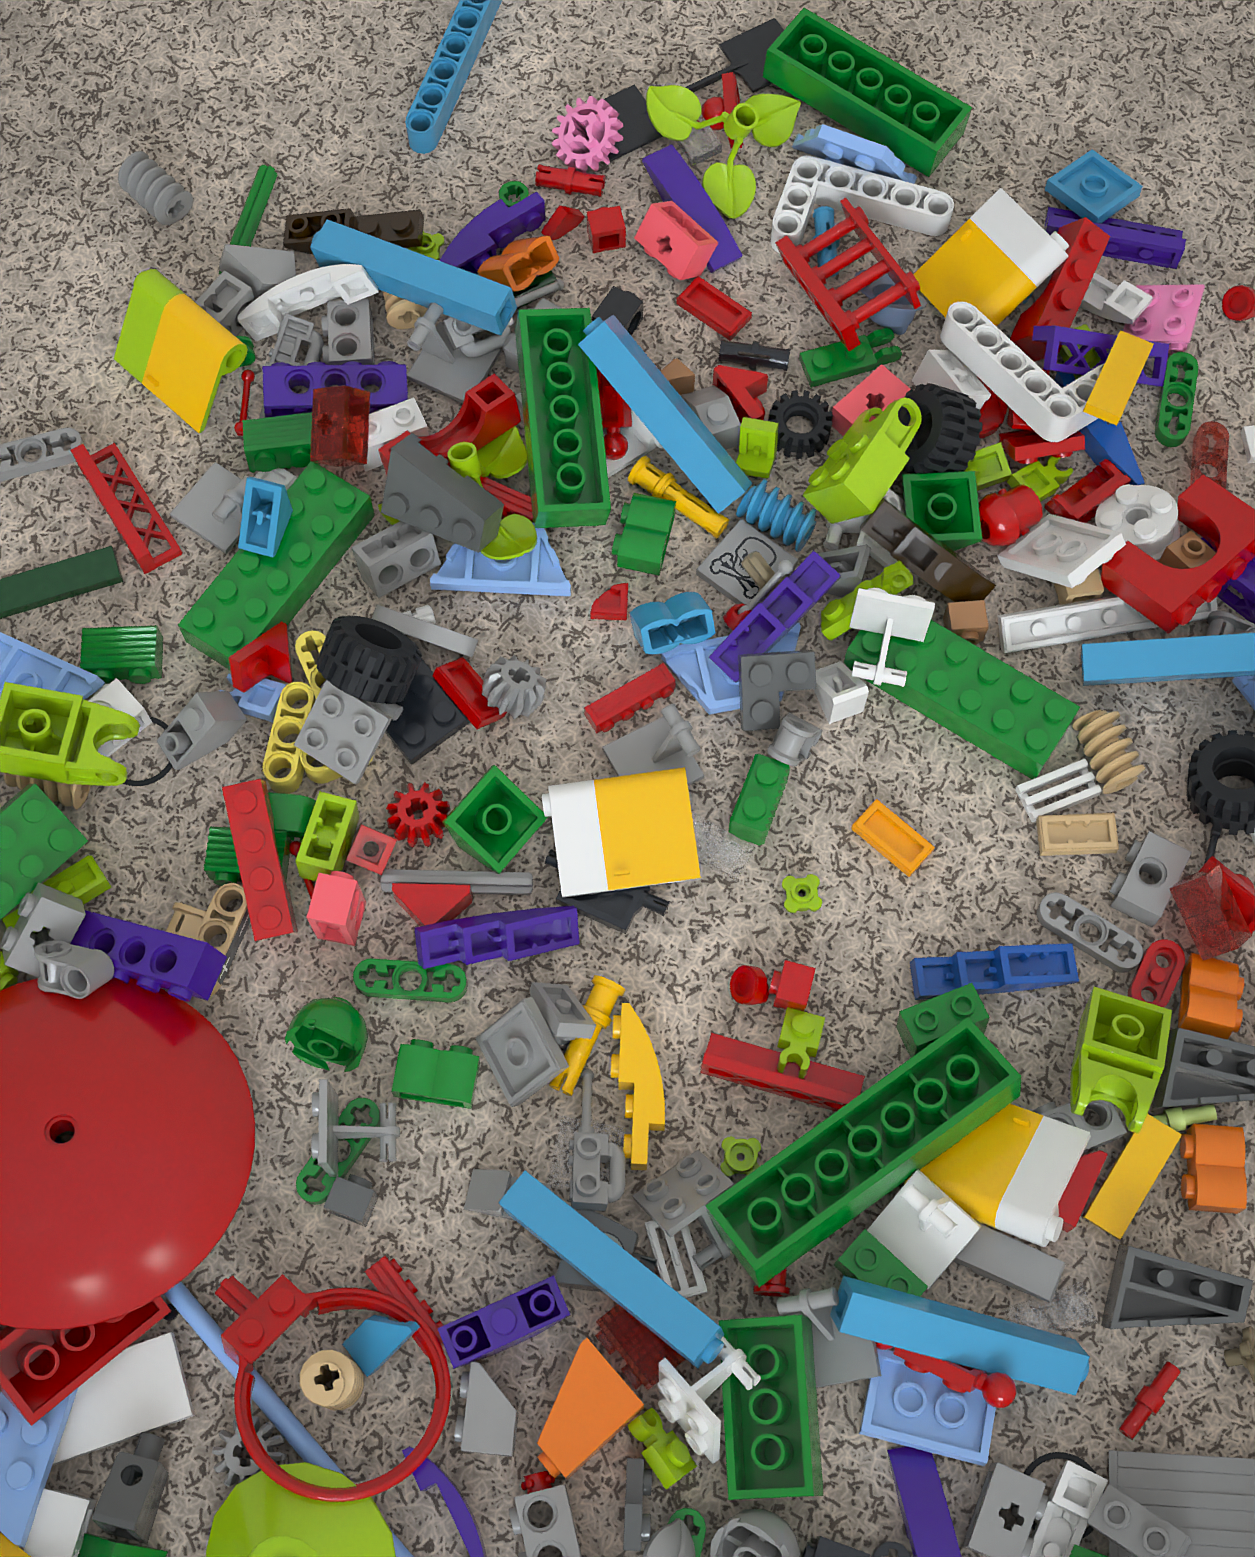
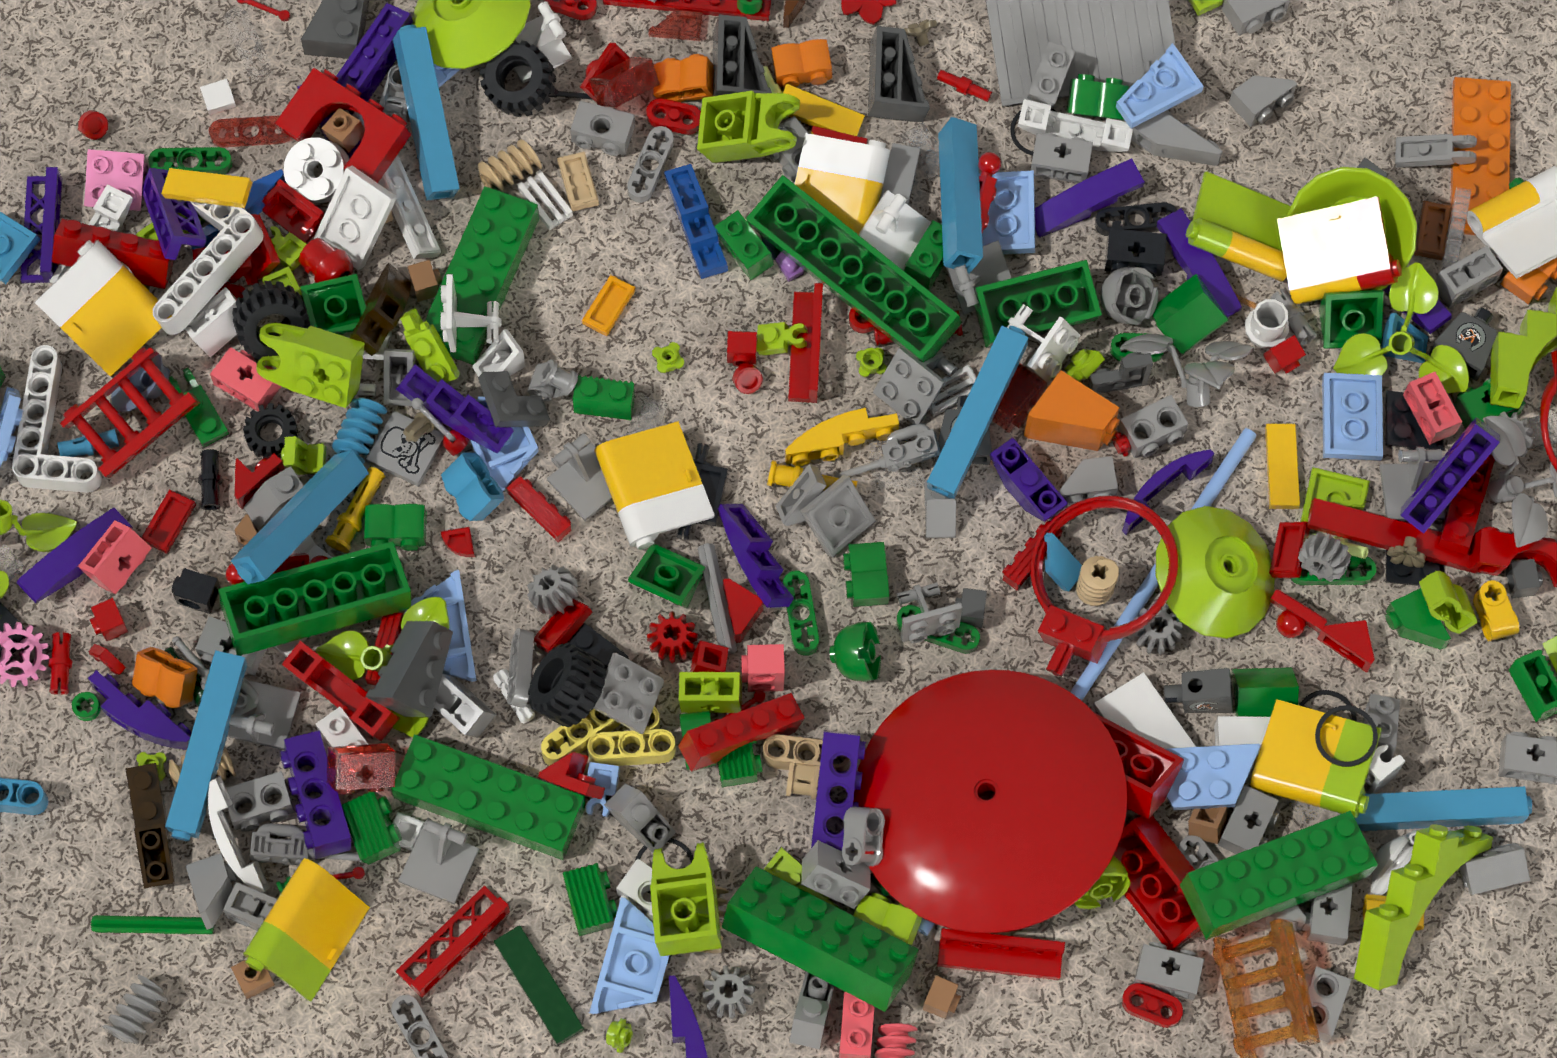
camera: 105 degrees left, 0 degrees up
(264, 516) = (462, 799): dark azure slope -> none

